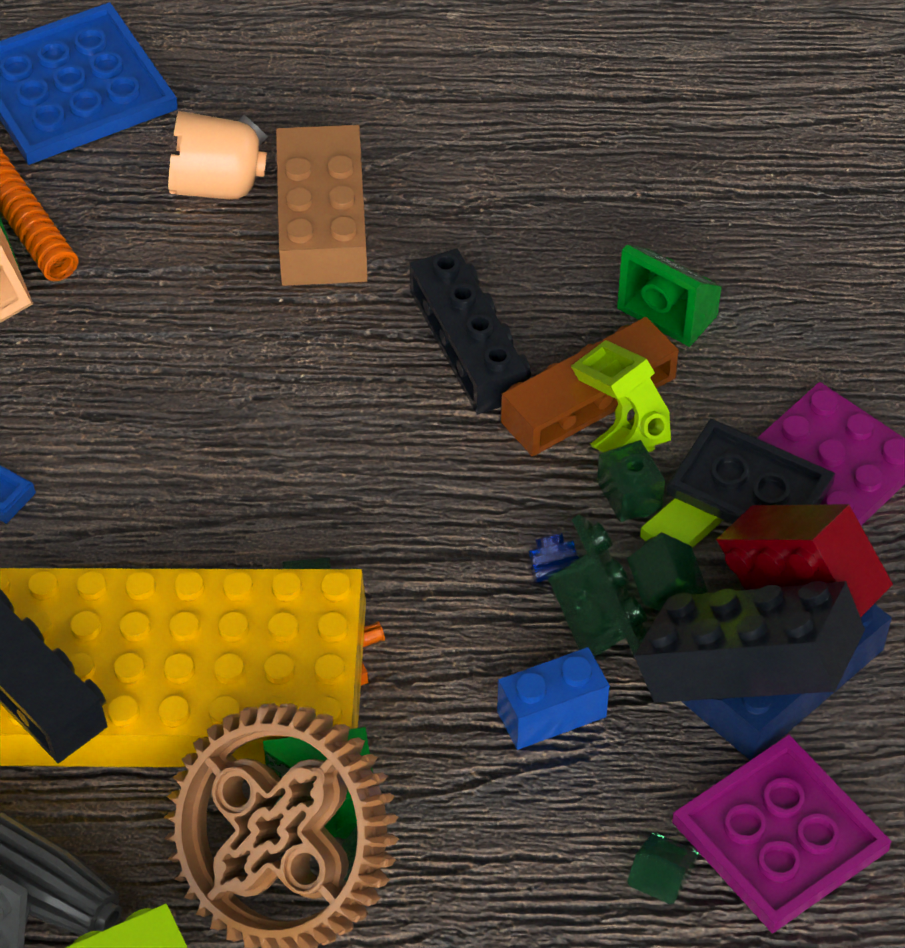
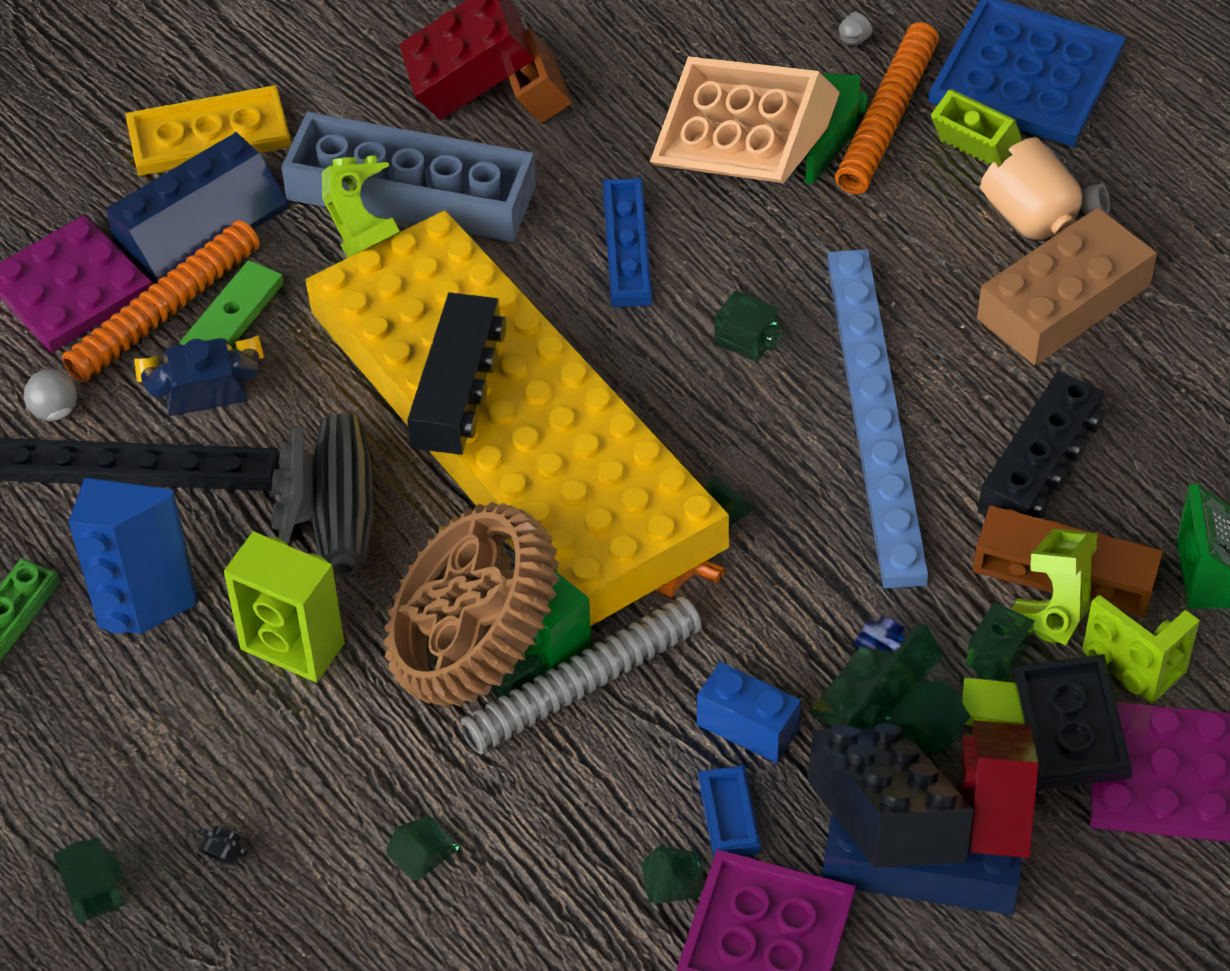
camera: 55 degrees right, 0 degrees up
(104, 149) = (975, 128): none -> lime brick
(143, 436) = (747, 326): none -> clear green brick
(321, 415) = (877, 421): none -> medium blue plate
(404, 764) = (580, 675): none -> light grey piece
(631, 782) = (729, 811): none -> blue tile
(726, 395) = (1141, 660): none -> lime bracket

